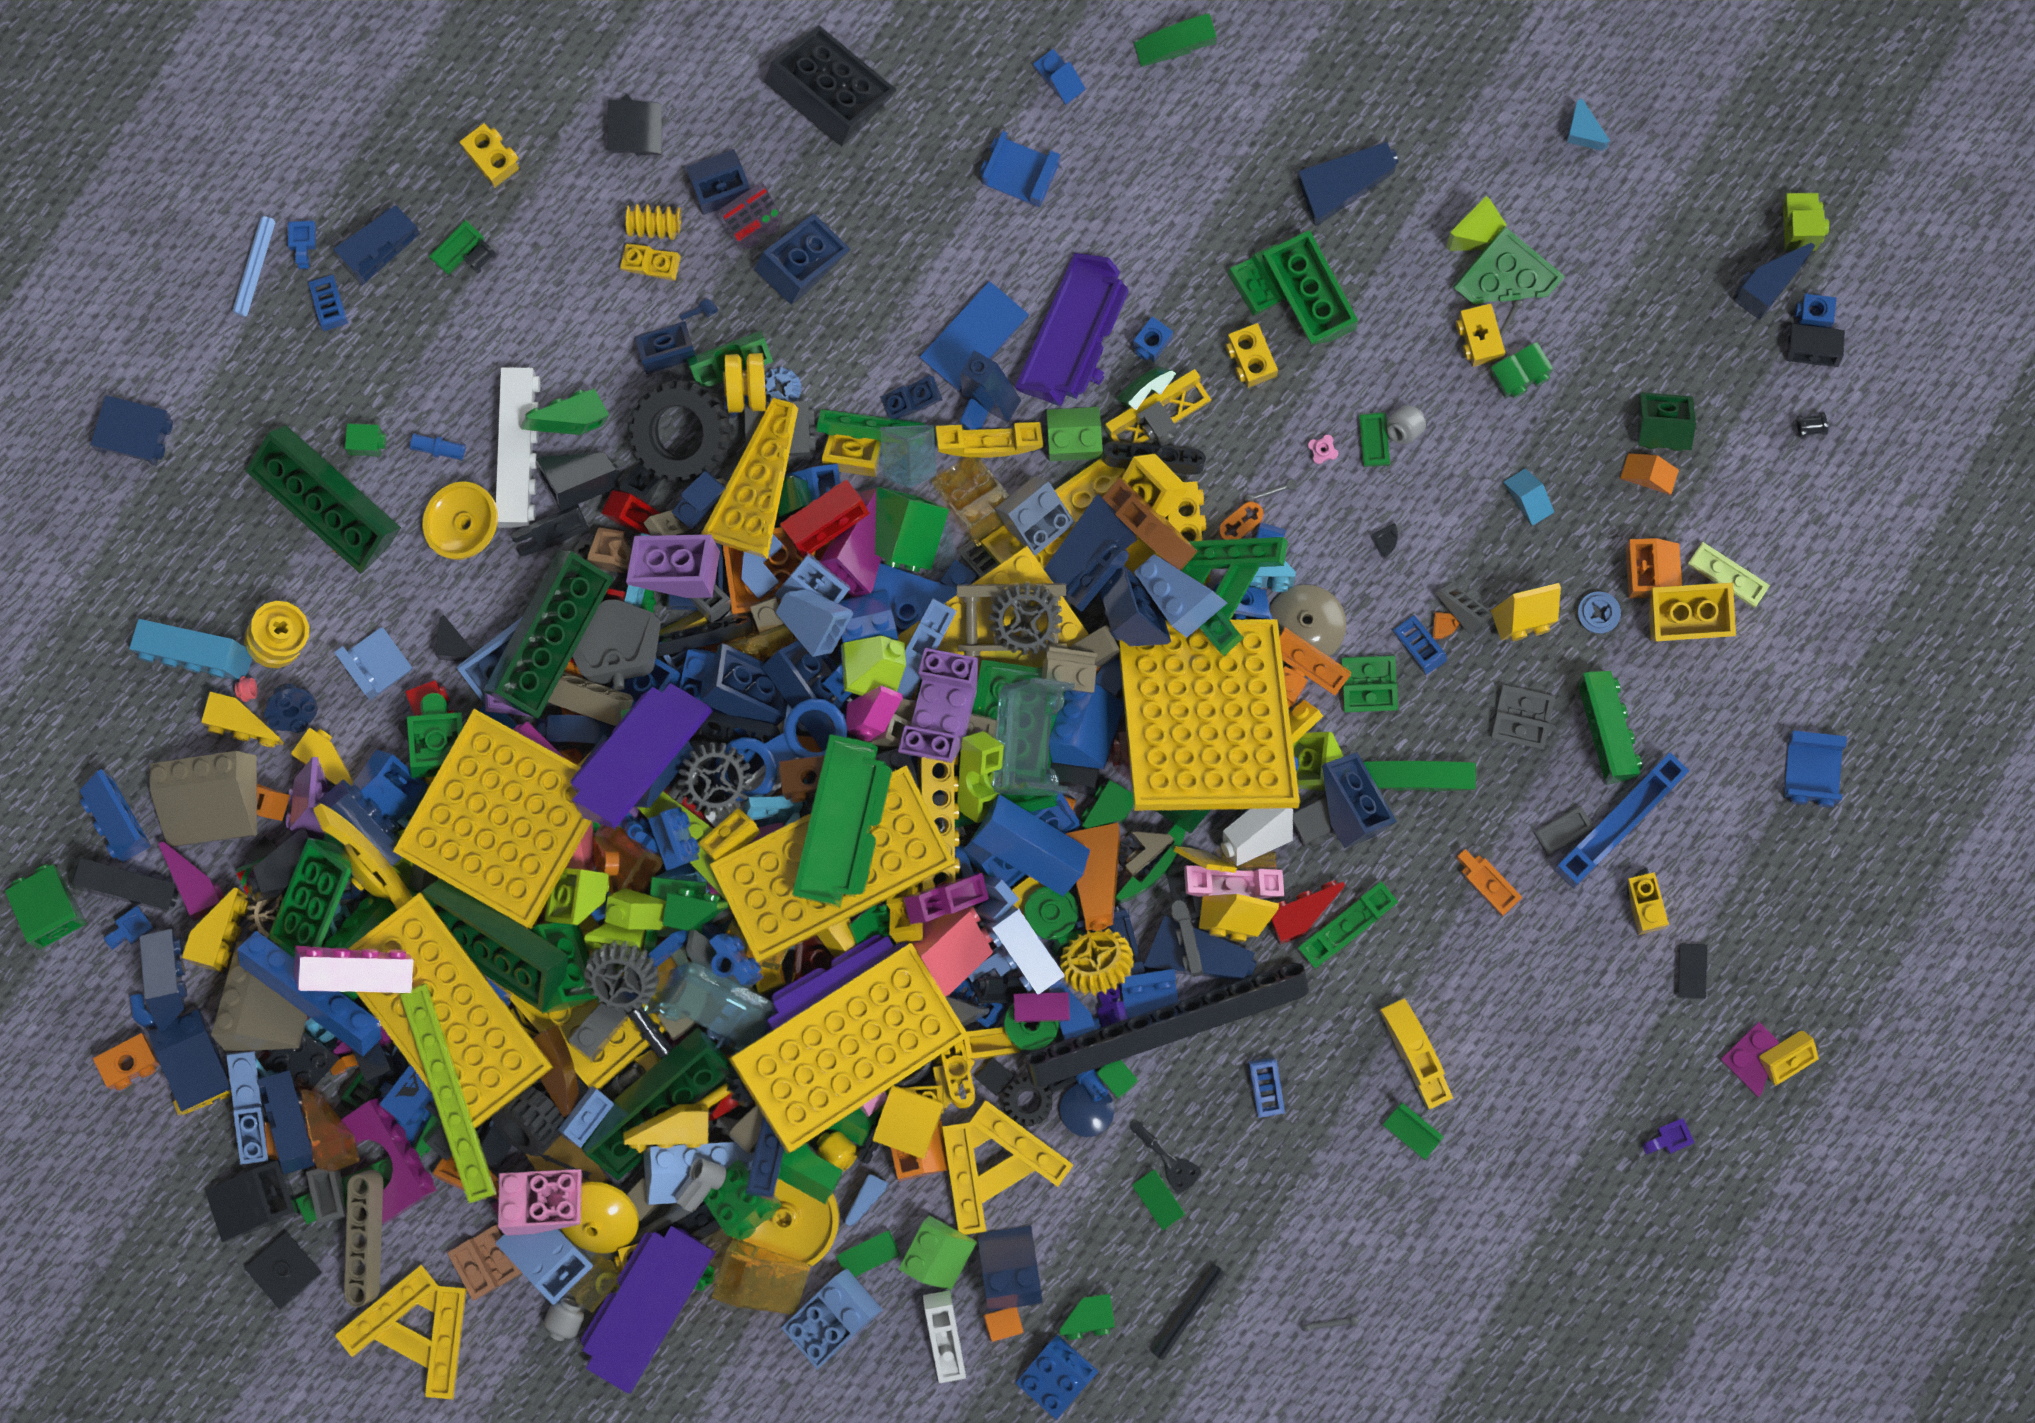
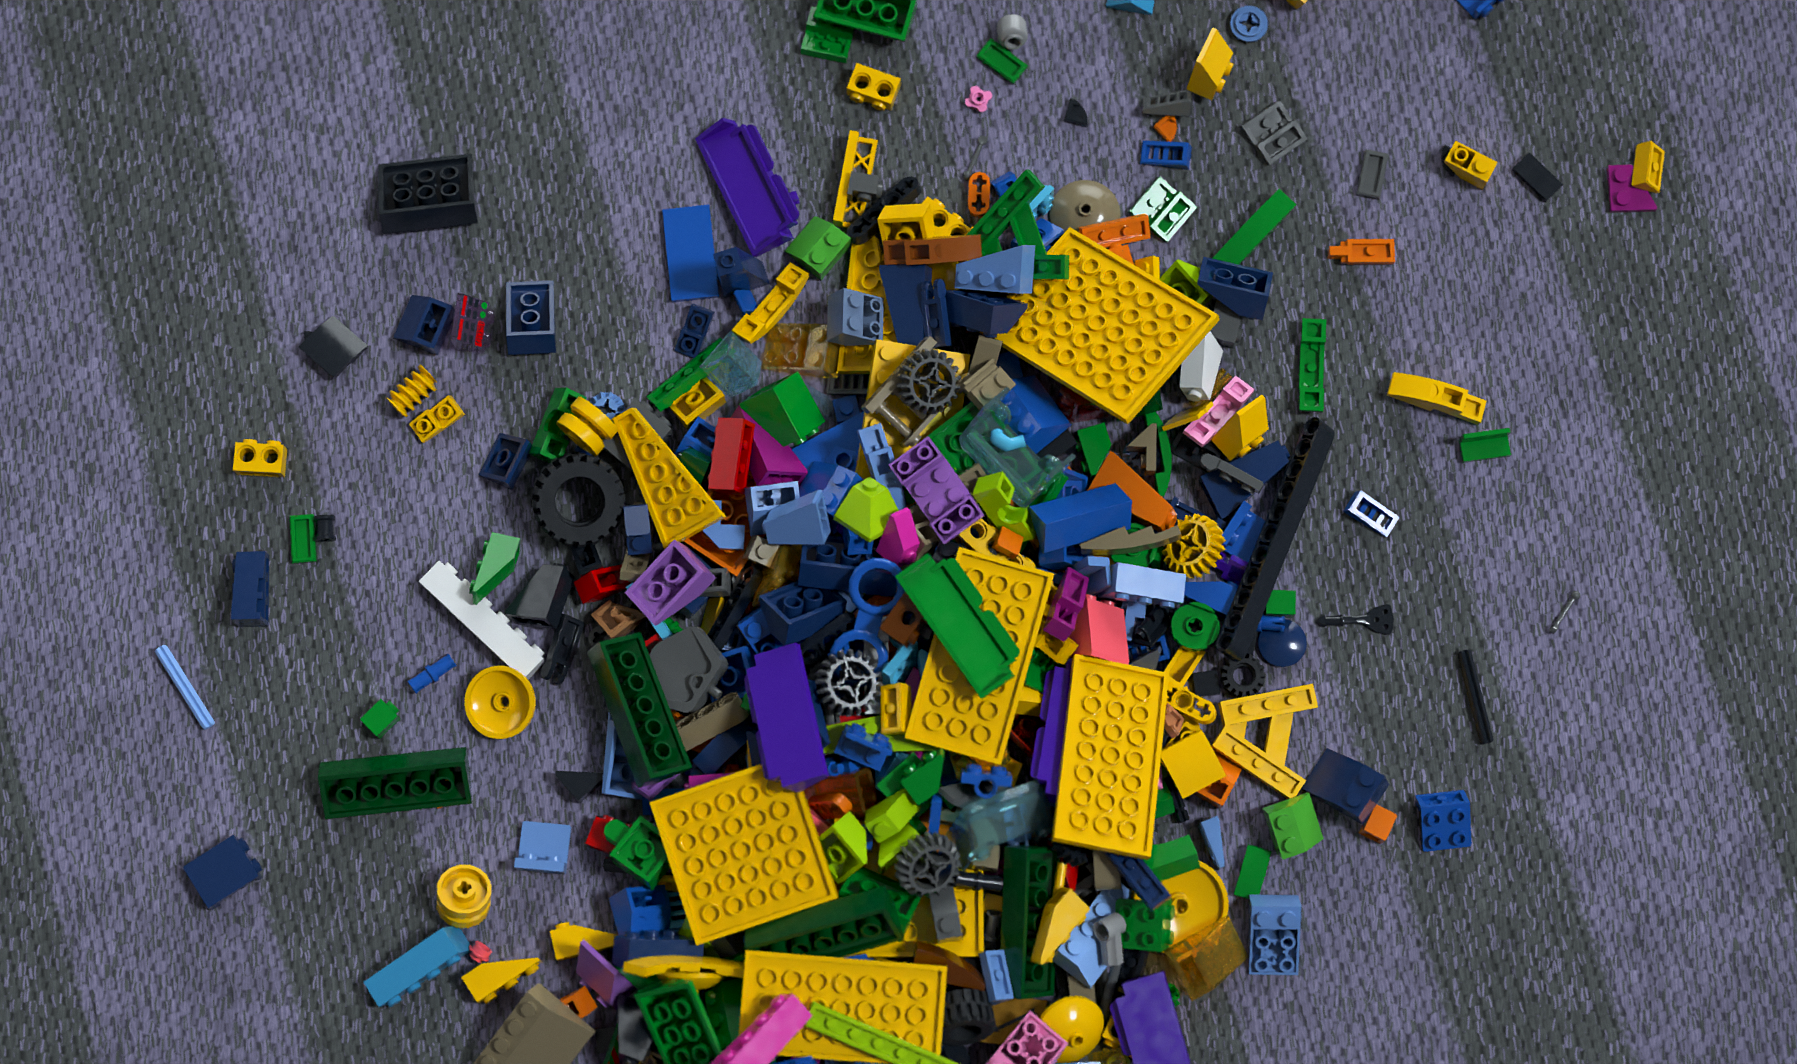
camera: 50 degrees left, 0 degrees up
(290, 708) = (523, 932): dark blue plate -> none
(301, 238) = (198, 637): blue plate -> none
(335, 320) = (275, 668): blue slope -> none
(705, 306) = (504, 408): dark blue hand -> none
(837, 1150) = (1166, 829): yellow head -> none
(931, 1074) = (1173, 721): none -> nougat tile
(944, 1336) = (1351, 869): white slope -> none
(953, 804) = (1008, 542): none -> orange slope
(1019, 170) = (605, 123): blue panel -> none
(1032, 726) = (1004, 442): none -> medium azure arm
(1041, 1007) = (1192, 609): magenta tile -> none
(1043, 899) = (1121, 543): none -> dark tan slope
(1059, 76) = (564, 41): blue slope -> none
(1090, 1315) = (1422, 762): green slope -> none
(1151, 381) = (830, 172): slope -> none
(1152, 329) = (802, 131): blue brick -> none
(1158, 1199) = (1384, 649): green slope -> none
(1299, 916) = (1279, 386): red slope -> none
(1608, 726) = (1331, 85): green slope -> none
(1621, 820) = (1402, 159): blue arch -> none
(1672, 1137) = (1635, 286): dark purple plate -> none

